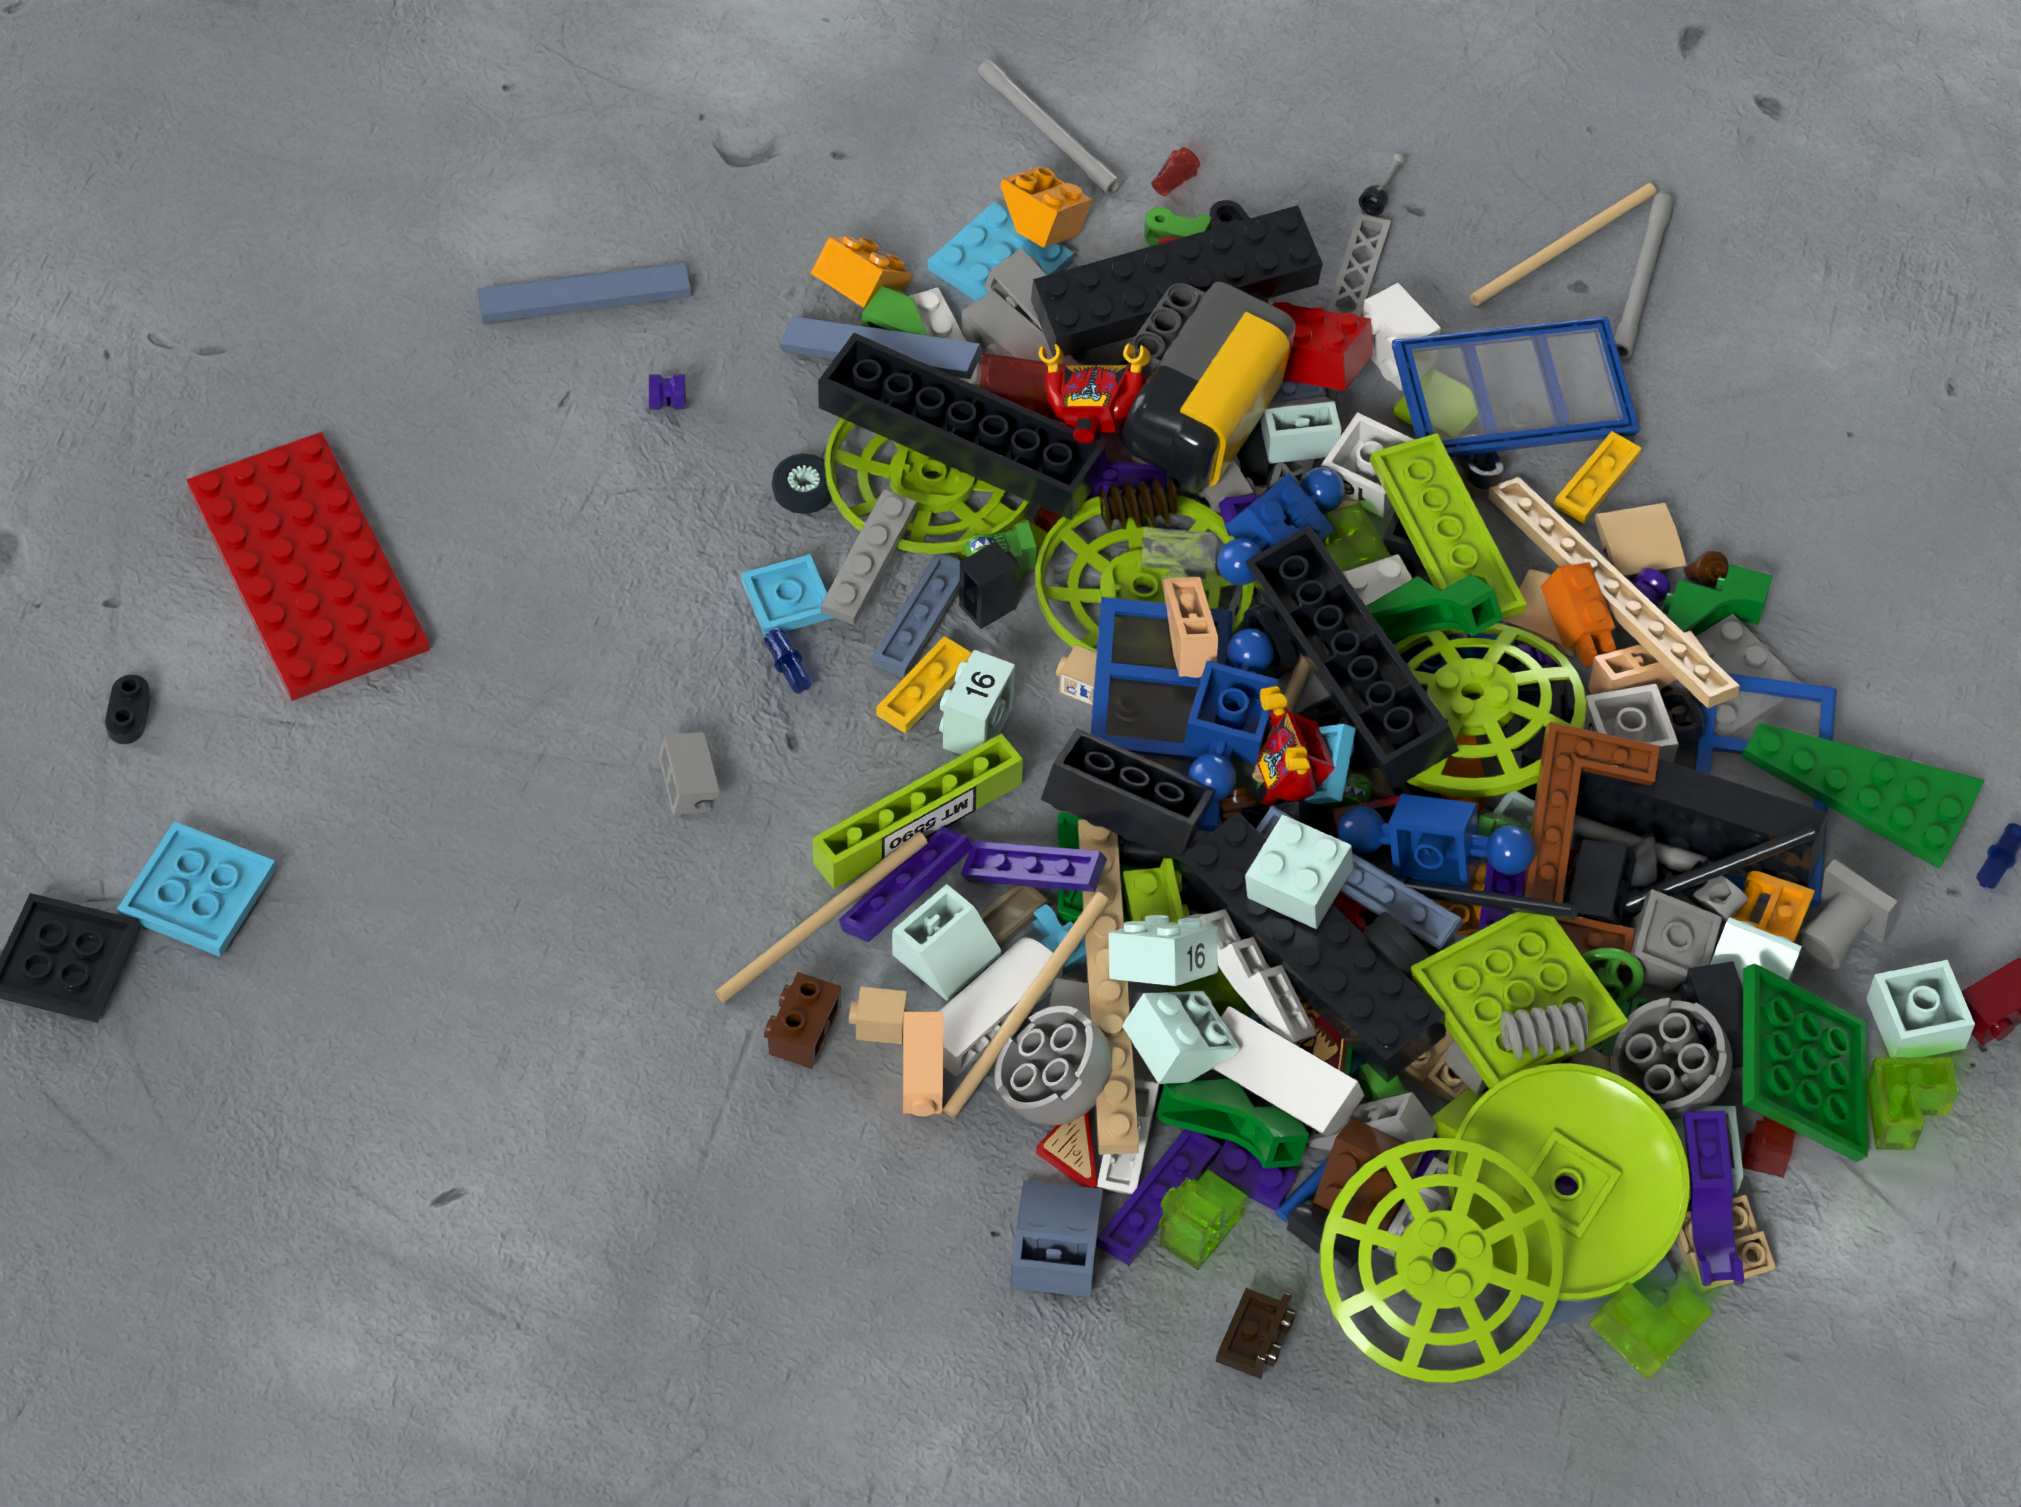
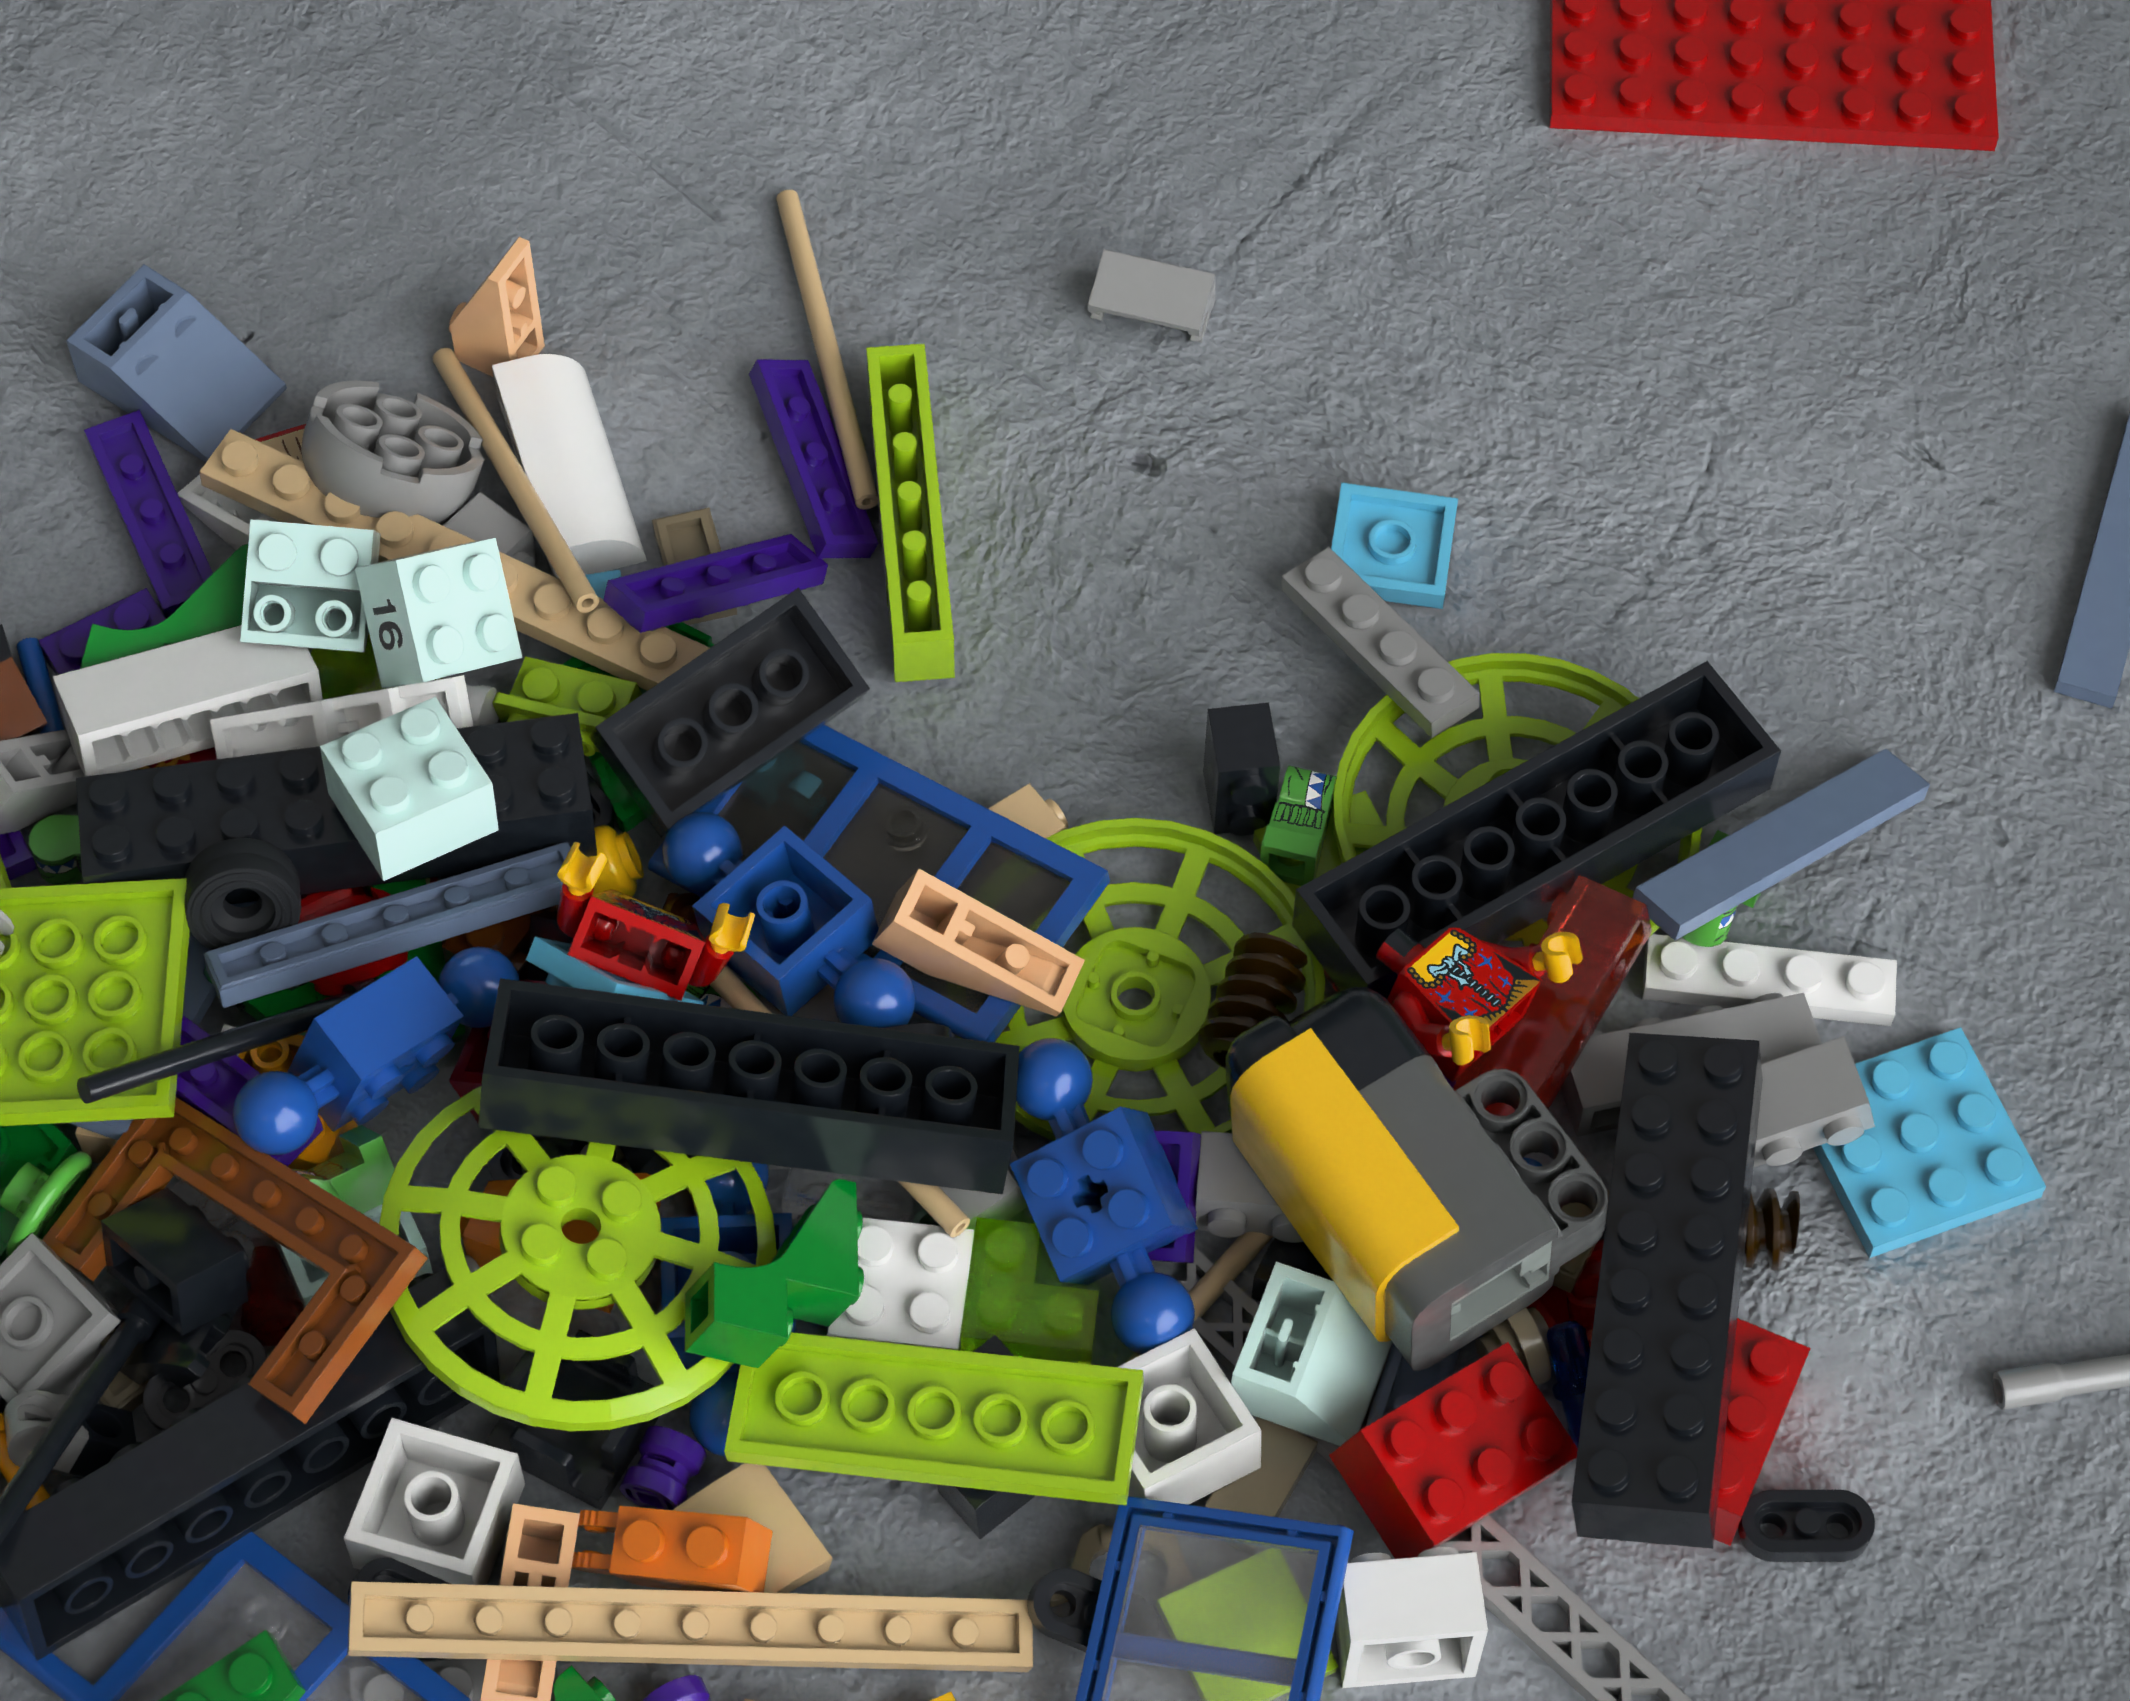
camera: 120 degrees right, 5 degrees up
(667, 391) = (1860, 554): dark purple wheel -> none
(787, 660) = (1273, 495): clear blue axle -> none
(792, 473) = (1595, 637): black bush -> none
(803, 1020) = (673, 245): reddish brown brick -> none
(859, 269) = (1977, 919): light orange slope -> none
(879, 1015) = (629, 337): tan brick -> none
(893, 312) = (1846, 914): bright green slope -> none
(919, 616) = (1251, 675): sand blue plate -> none
(922, 685) = (1133, 639): yellow plate -> none
(945, 942) = (682, 448): light aqua slope -> none
(977, 703) = (1033, 652): light aqua brick -> none
(1045, 206) = (1975, 1217): light orange slope -> none
(1164, 224) = (1843, 1418): bright green leg -> none
(1178, 169) = (1984, 1502): clear red cone -> none
(1178, 551) = (1134, 1030): clear plate -> none
(1199, 1217) = (73, 521): clear neon green brick -> none

